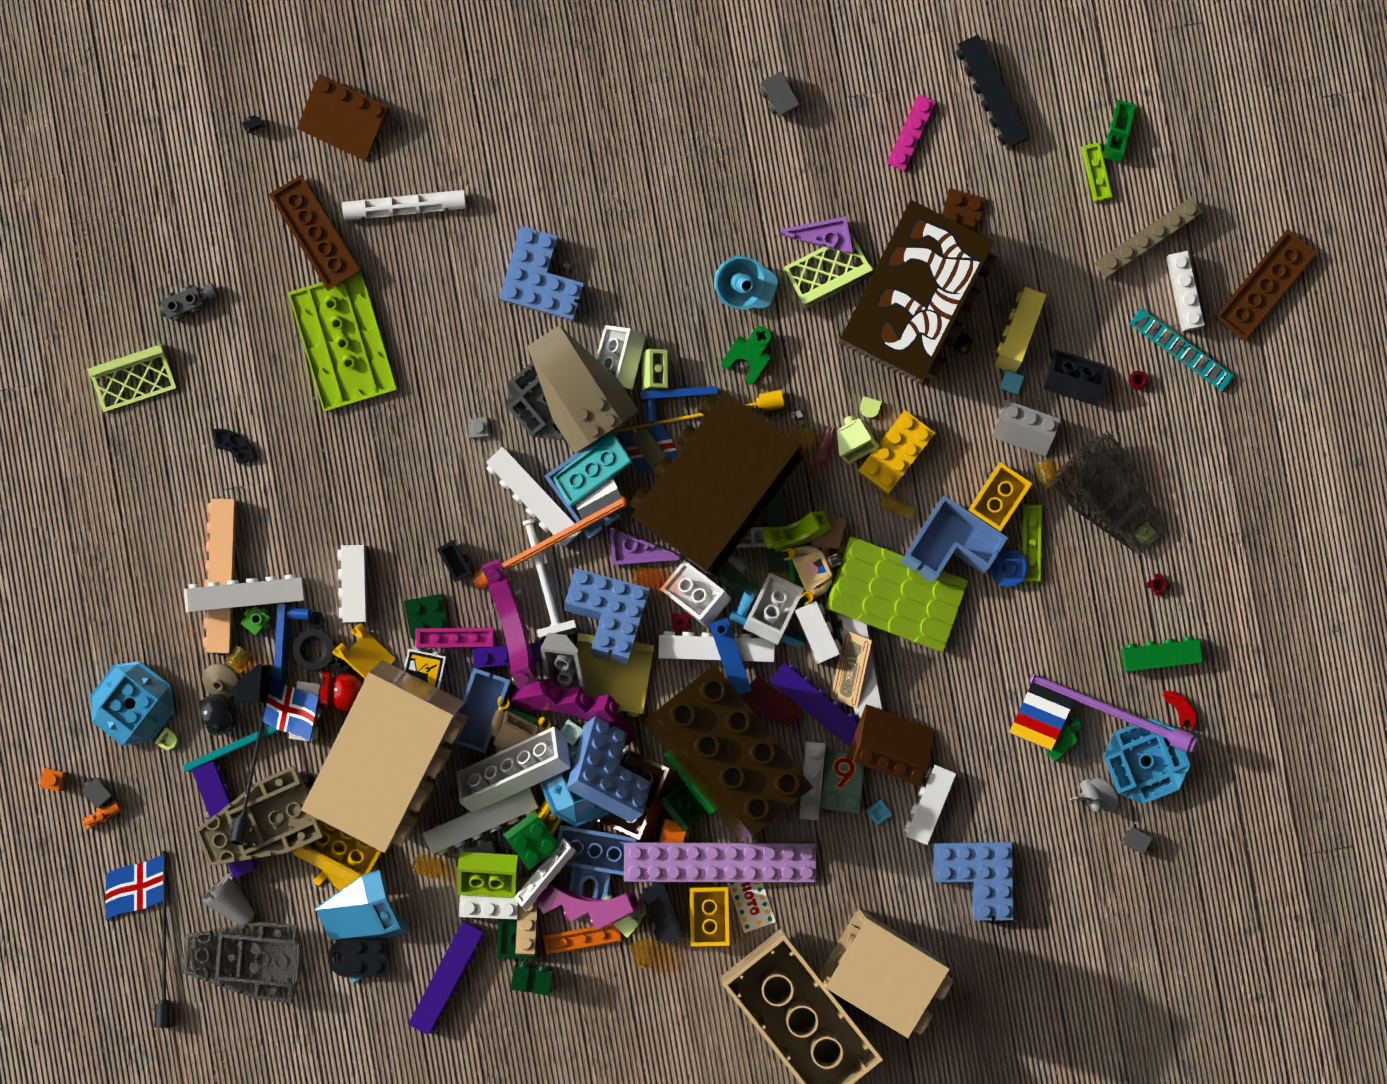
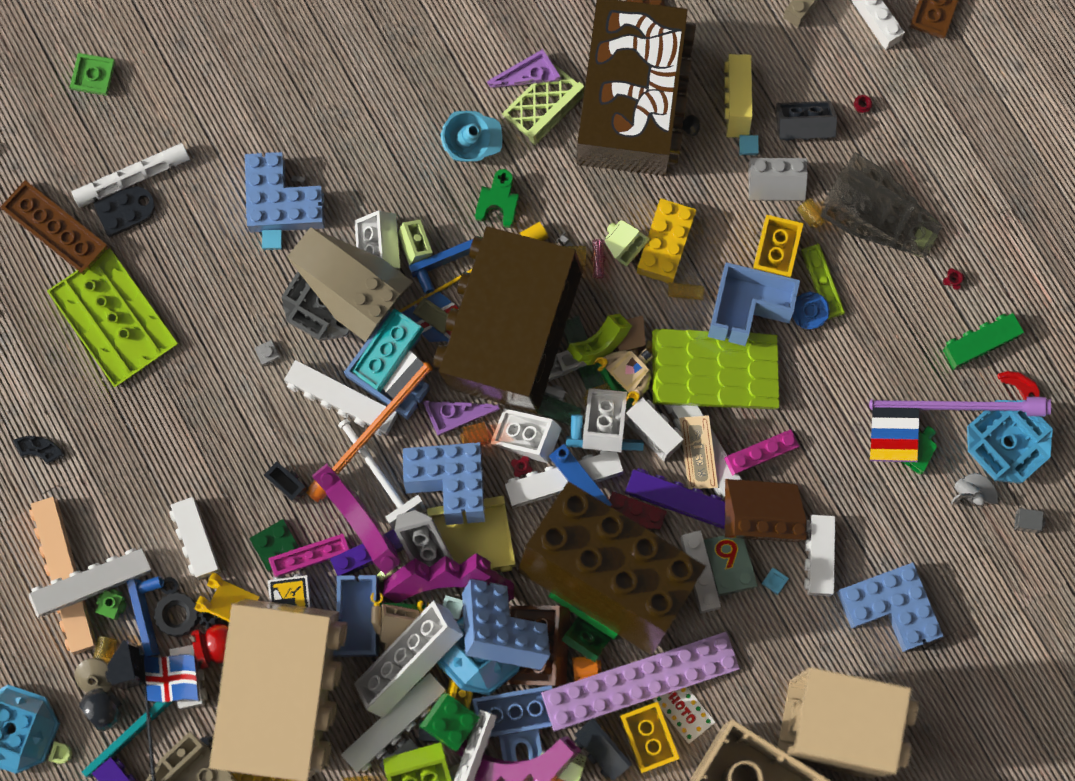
camera: 15 degrees left, 10 degrees down
(343, 117) = (48, 116): reddish brown slope -> none
(386, 237) = (123, 210): none -> black plate
(399, 87) = (92, 74): none -> bright green plate
(519, 316) = (272, 239): none -> medium azure tile
(869, 407) = (626, 211): yellowish green tile -> none
(910, 688) = (761, 452): none -> dark pink plate
(1181, 349) = (891, 65): tile -> none

